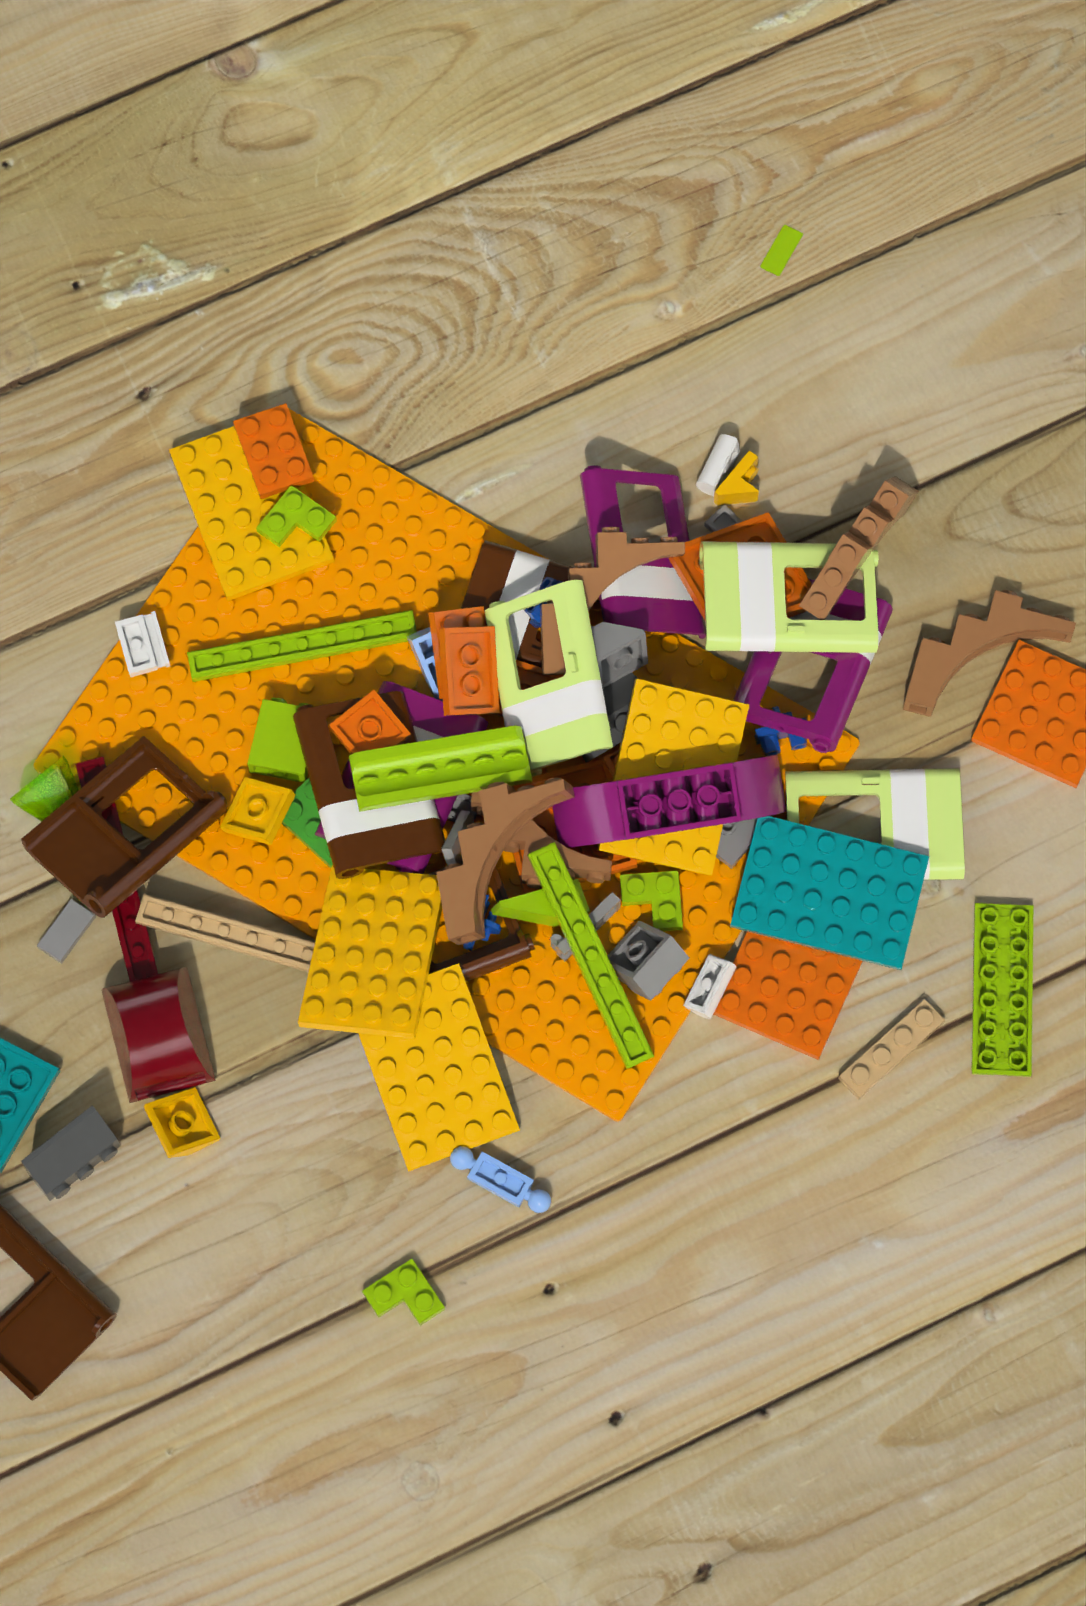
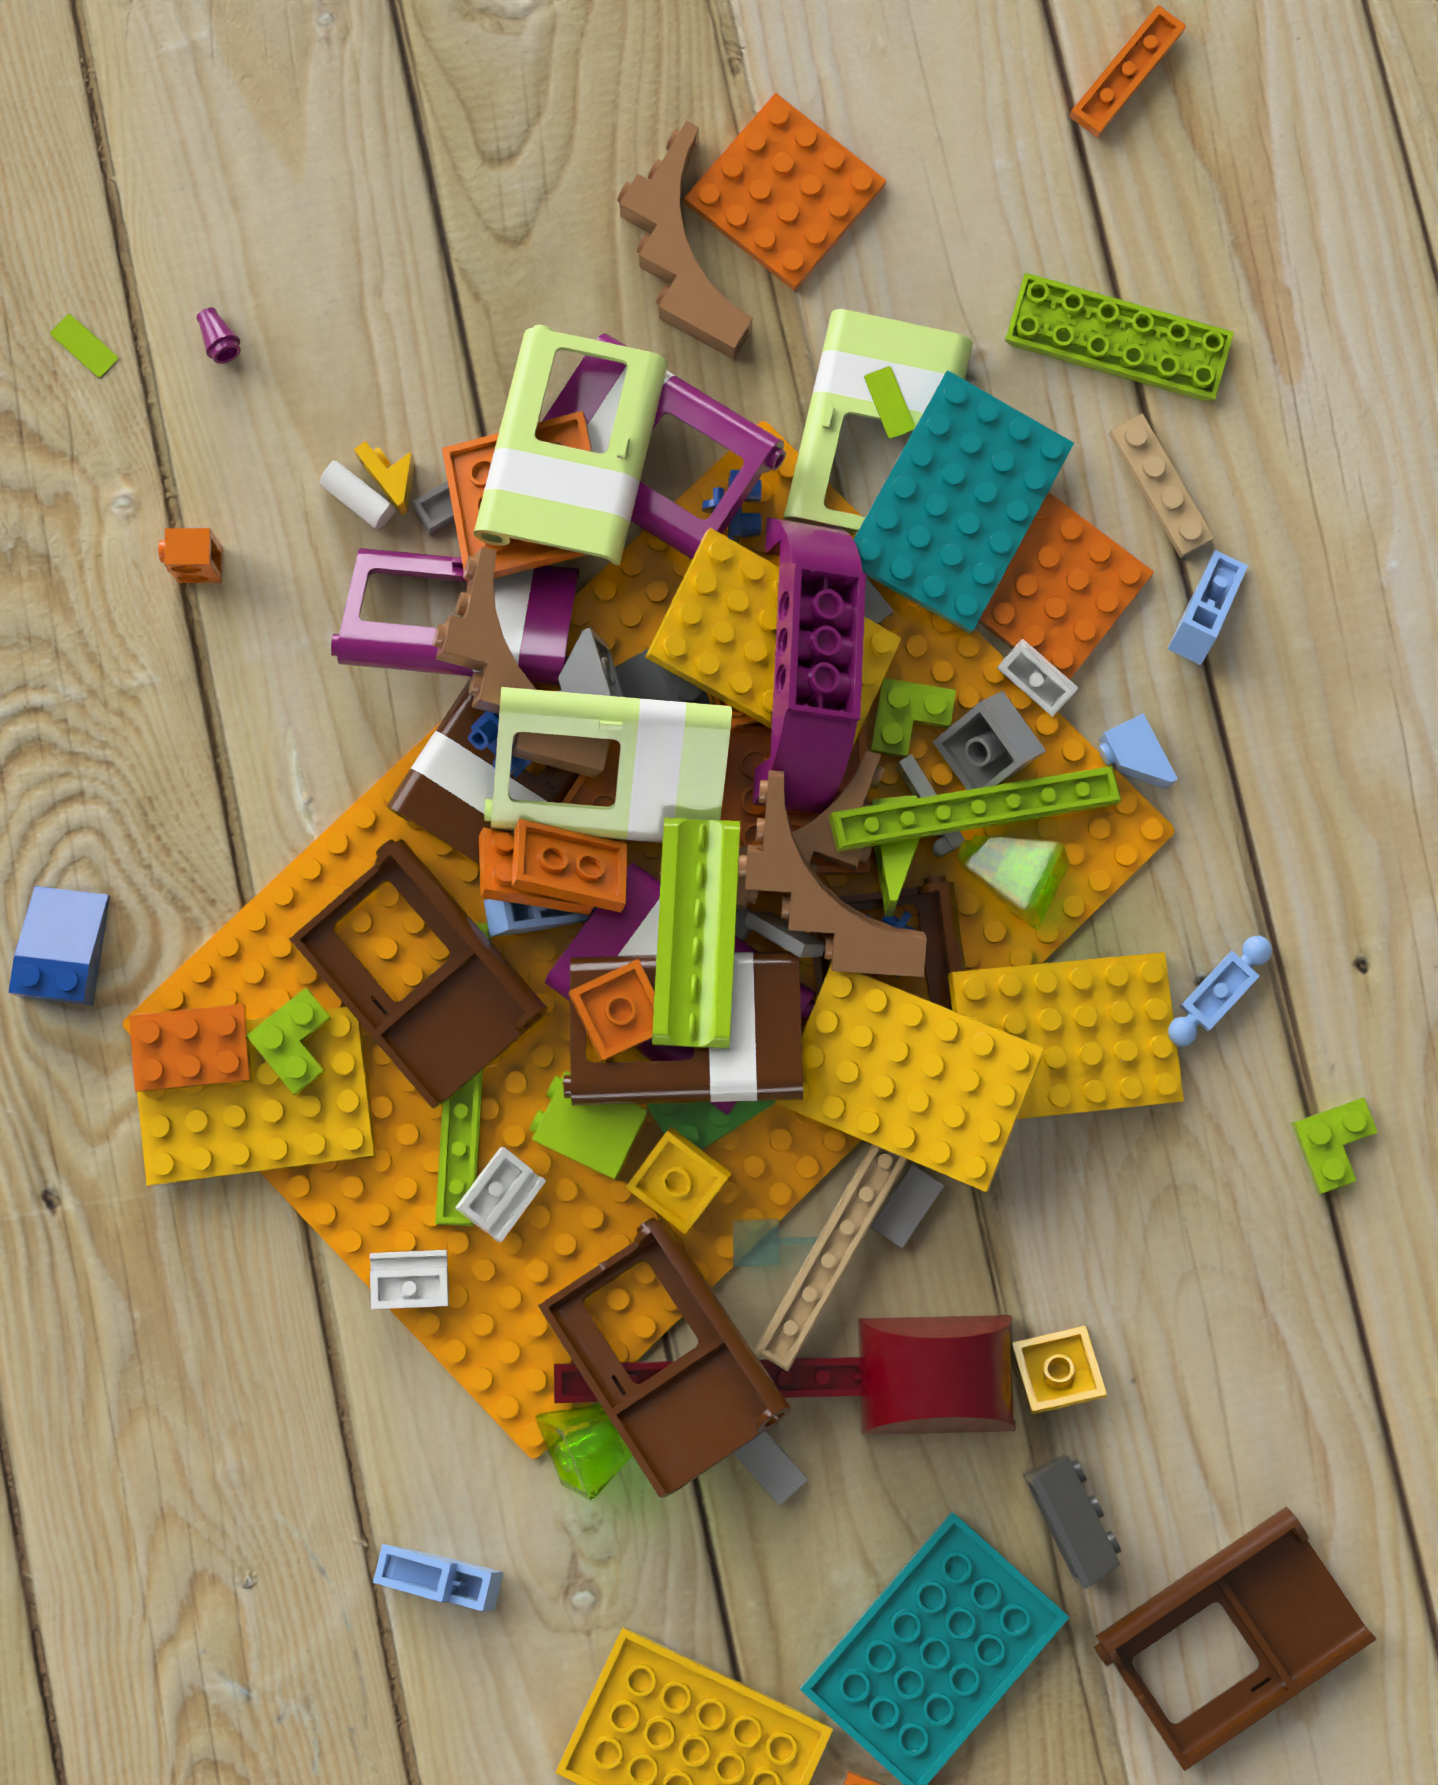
camera: 80 degrees left, 10 degrees up
(218, 690) = (500, 1194): none -> white plate
(226, 884) = (759, 1241): none -> clear light blue piece
(277, 986) = (907, 1206): none -> light grey tile
(328, 349) = (60, 946): none -> slope
(342, 627) = (456, 1015): none -> reddish brown piece
(548, 1003) = (1017, 872): none -> clear neon green slope
(637, 360) = (192, 555): none -> orange brick
(672, 1073) = (1137, 753): none -> light blue slope
(801, 1103) = (1207, 607): none -> light blue slope
(811, 338) = (218, 338): none -> magenta cone
(857, 544) = (542, 347): medium nougat arch -> none
(894, 823) = (889, 402): none -> lime sticker

